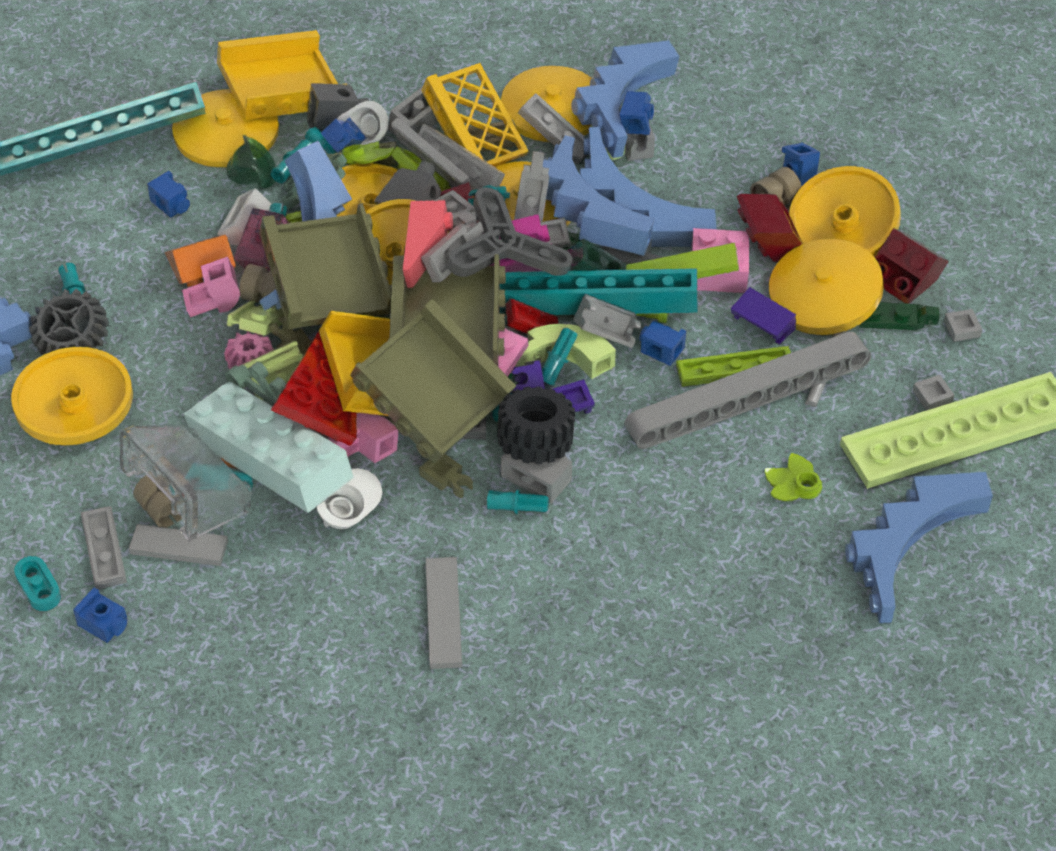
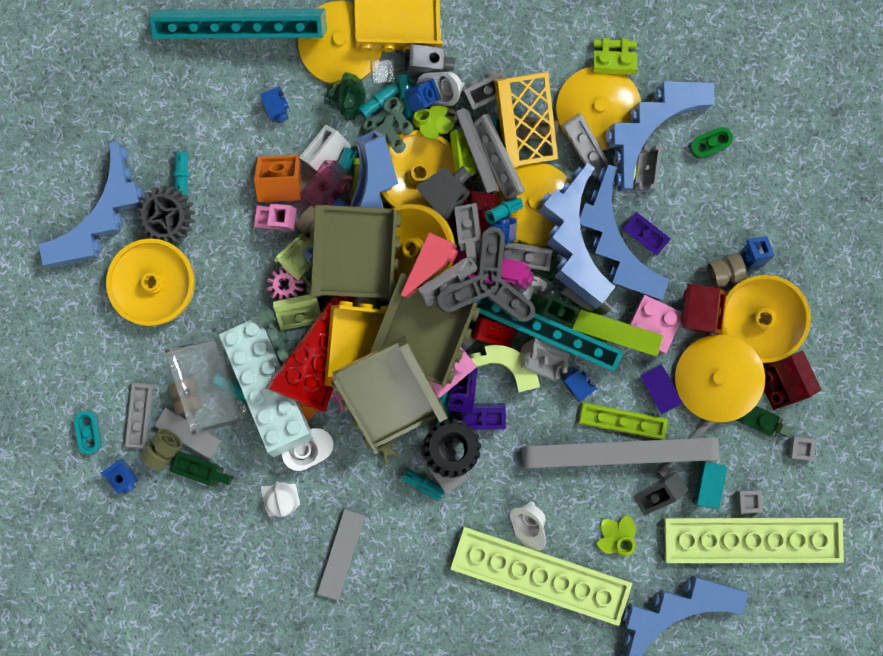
camera: 25 degrees right, 35 degrees up
(149, 561) = (161, 449): none -> olive wheel
(210, 576) = (199, 470): none -> dark green hinge
(285, 135) = (382, 71): none -> clear tile
(333, 578) = (280, 499): none -> white piece
(532, 188) = (536, 222): light grey hinge -> none
(548, 54) = (614, 62): none -> lime plate
(558, 355) = (497, 375): teal axle -> none
(636, 113) = (651, 163): blue brick -> none
(667, 181) = (646, 233): none -> dark purple hinge
(674, 484) = (529, 525): none -> white piece
(691, 98) = (710, 142): none -> green plate
(718, 548) = (541, 576): none -> yellowish green plate
(820, 416) = (661, 493): none -> dark grey slope
(875, 393) = (710, 485): none -> teal panel

